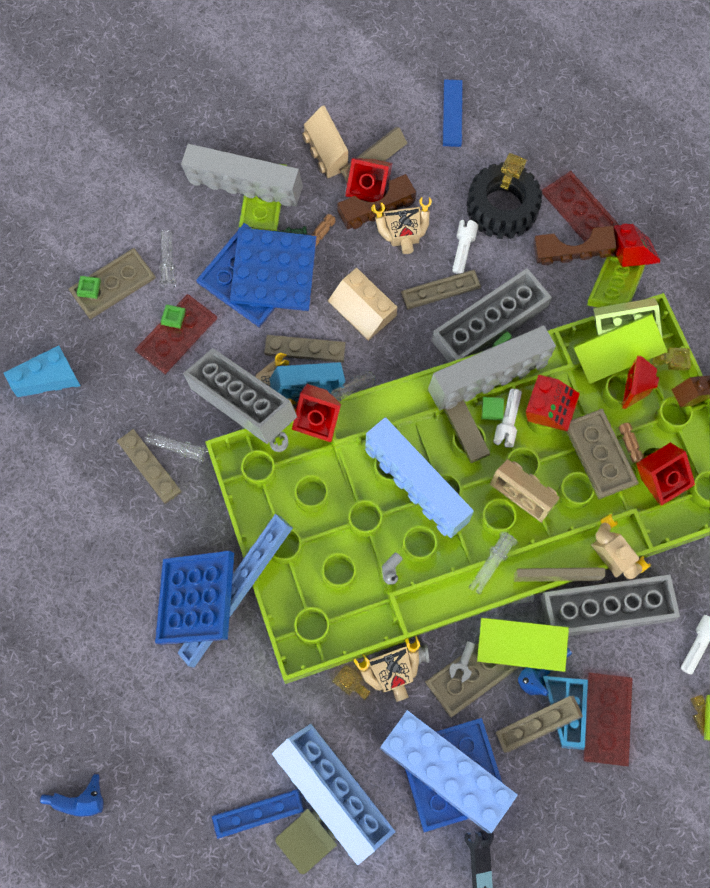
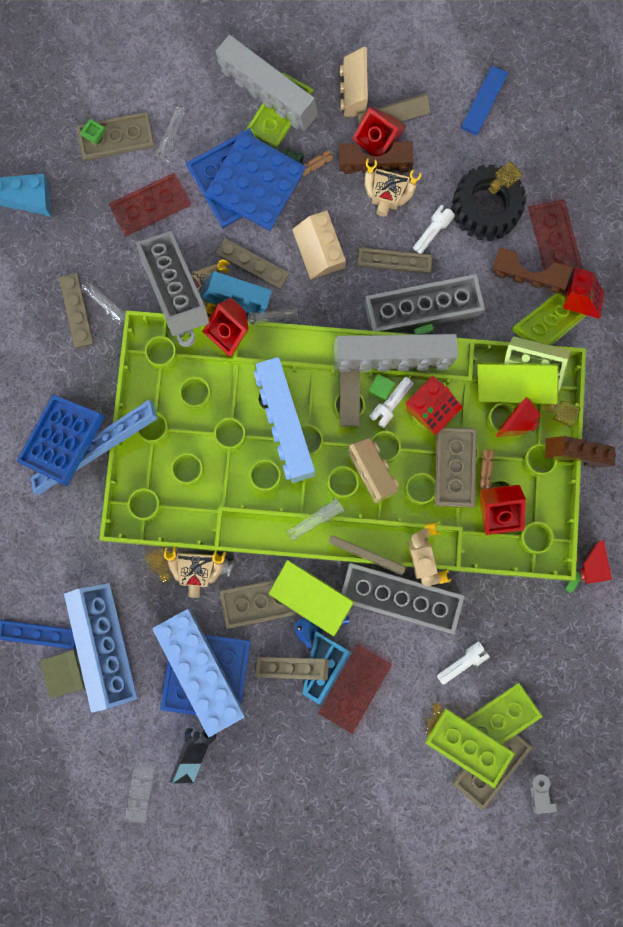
camera: 25 degrees right, 10 degrees up
(173, 316) = (152, 187): bright green tile -> none
(389, 569) = (227, 486): light grey arm -> none
(462, 664) = (257, 589): light grey bar -> none

